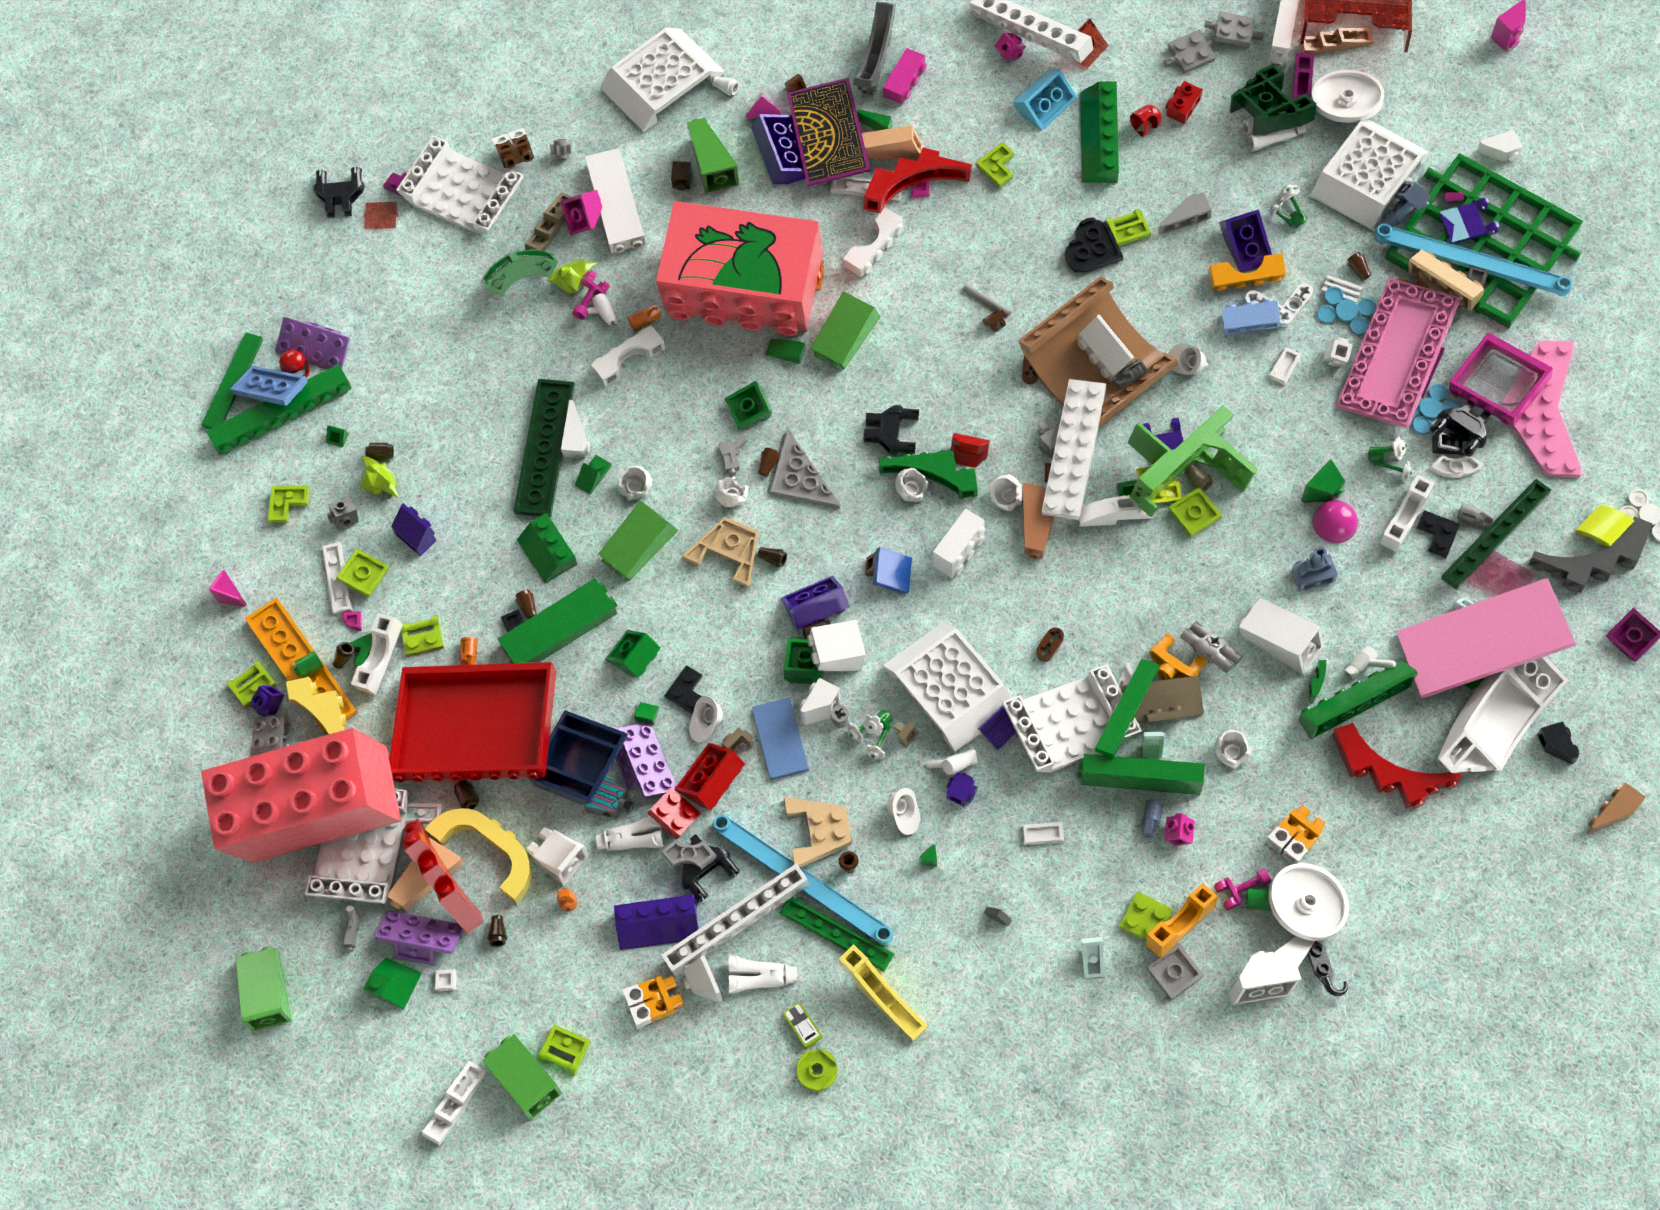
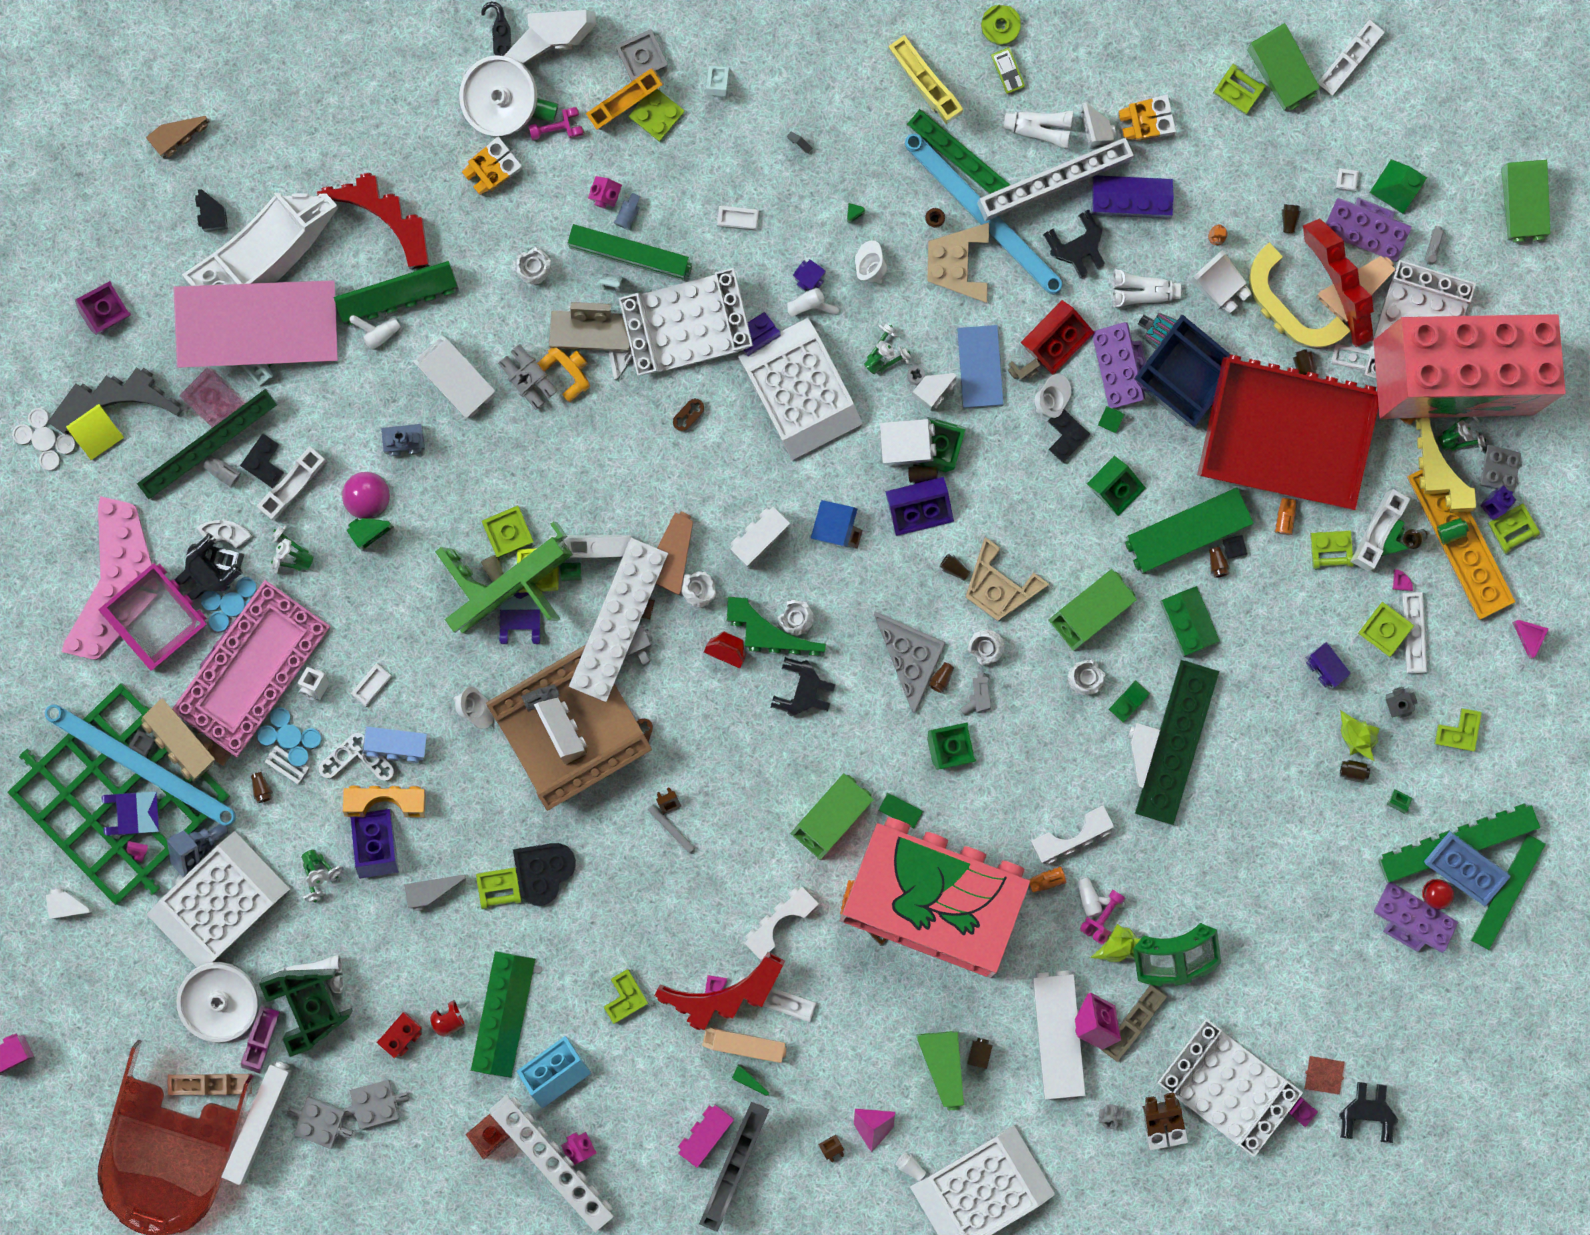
camera: 175 degrees left, 20 degrees up
(673, 813) = (1099, 301): plate -> none
(680, 853) = (1081, 251): light grey tile -> none
(779, 147) = (853, 1066): dark purple slope -> none
(828, 132) = (806, 1072): black piece -> none
(906, 733) = (853, 344): dark tan tile -> none
(1127, 708) = (628, 319): green tile -> none
(1316, 683) = (432, 316): green slope -> none

